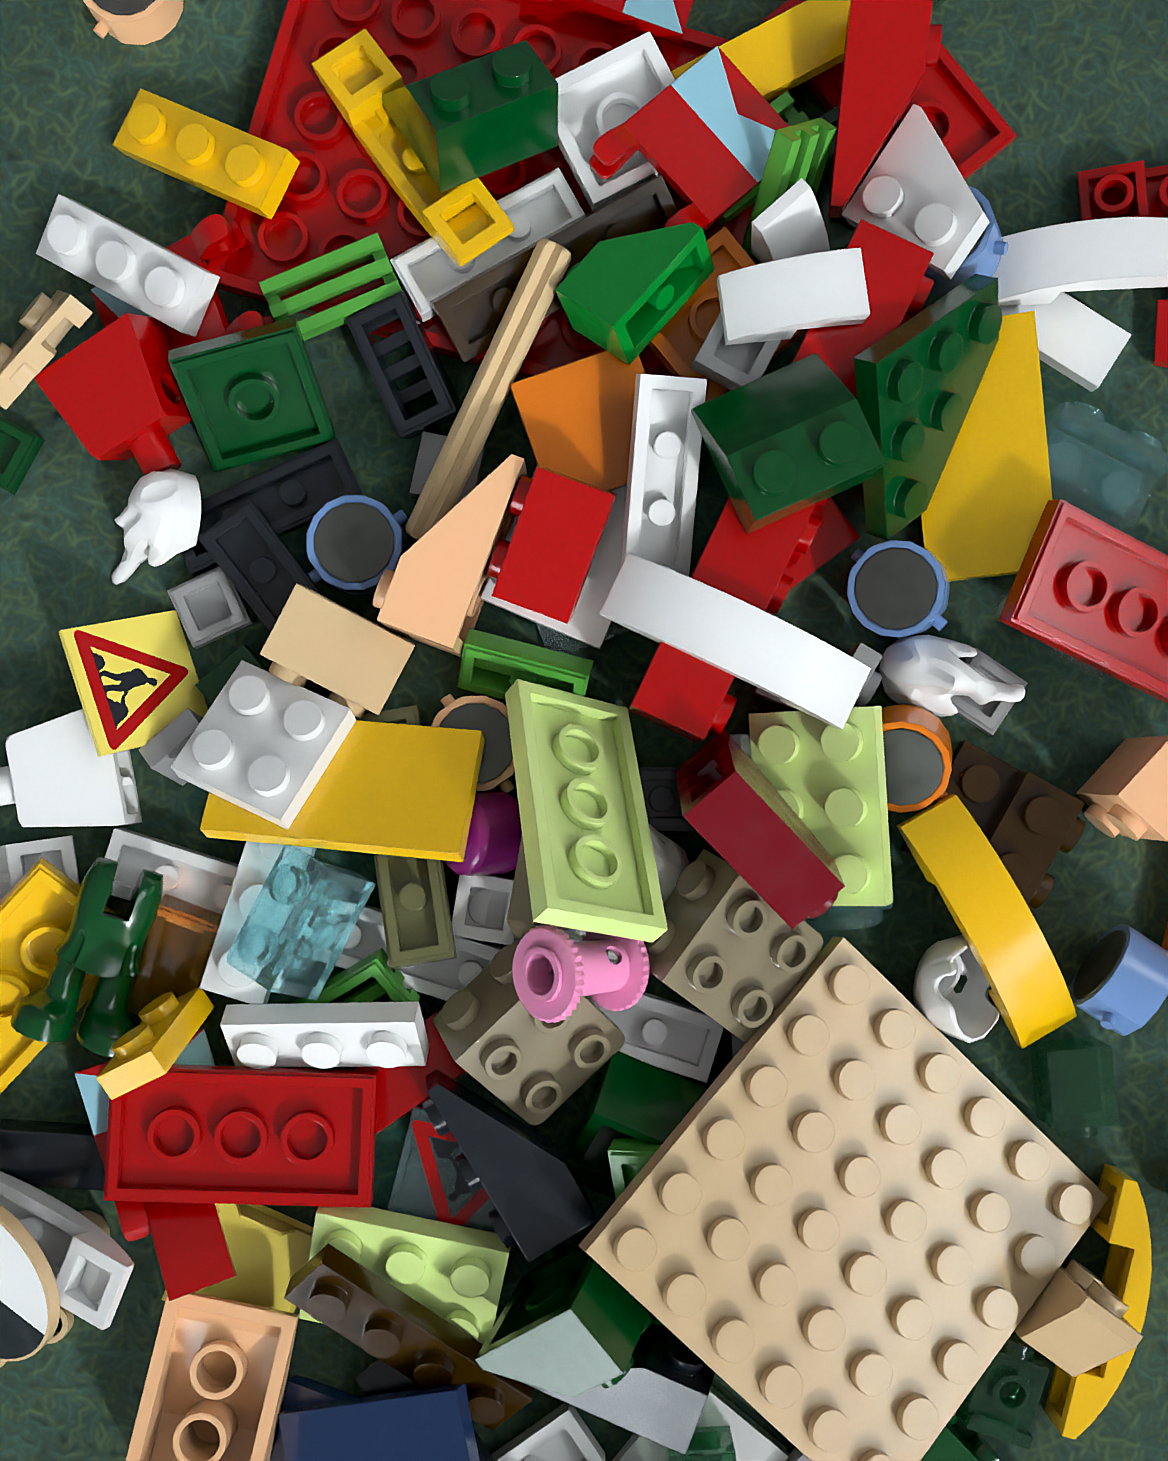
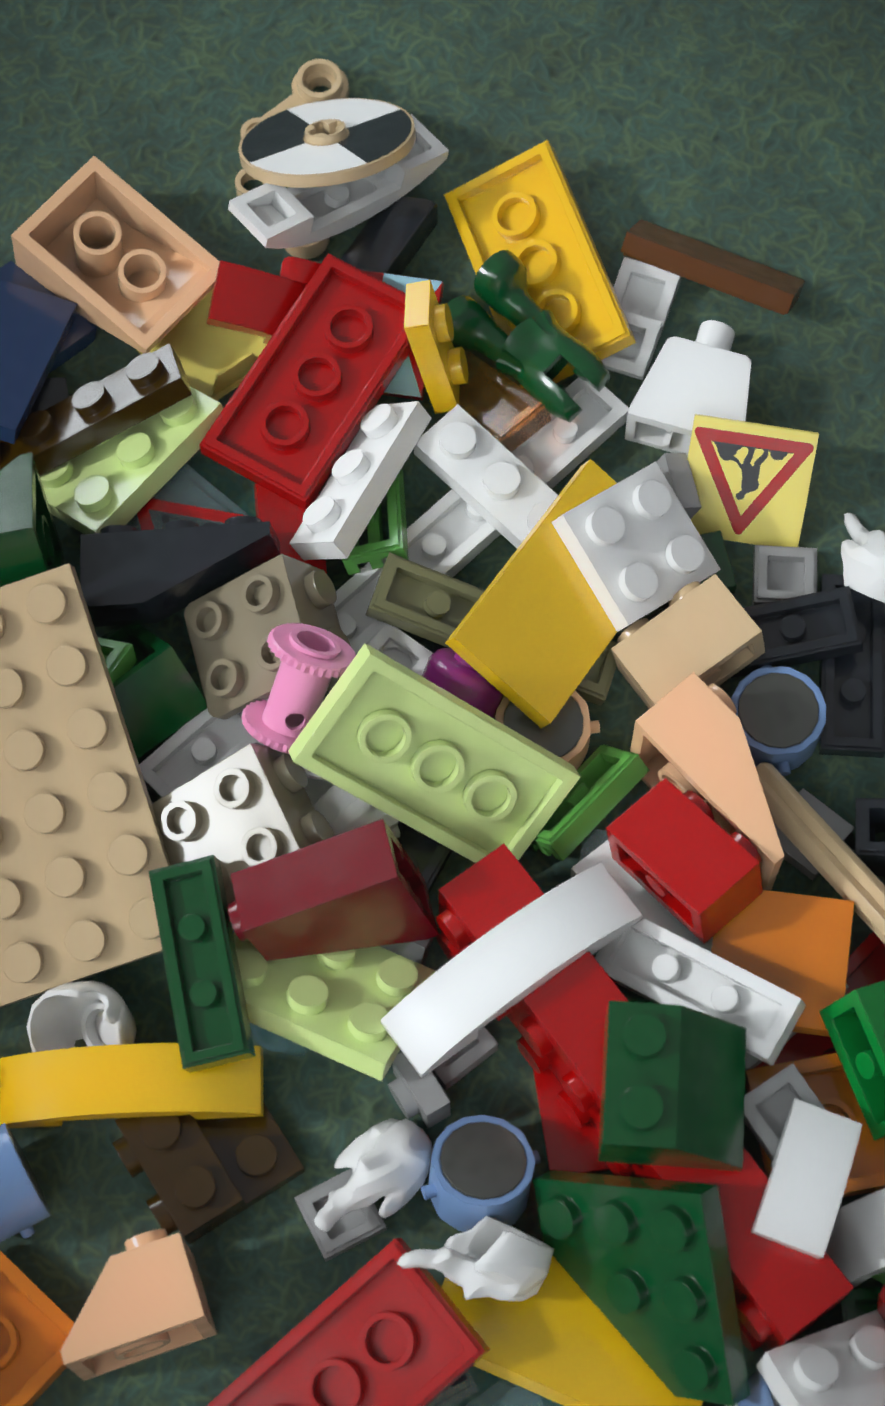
camera: 120 degrees right, 20 degrees down
(299, 924) = (464, 502): clear light blue bracket -> none
(875, 912) = (201, 964): none -> dark green tile
(915, 757) = (318, 1098): piece -> none
(974, 532) = (488, 1261): none -> white piece

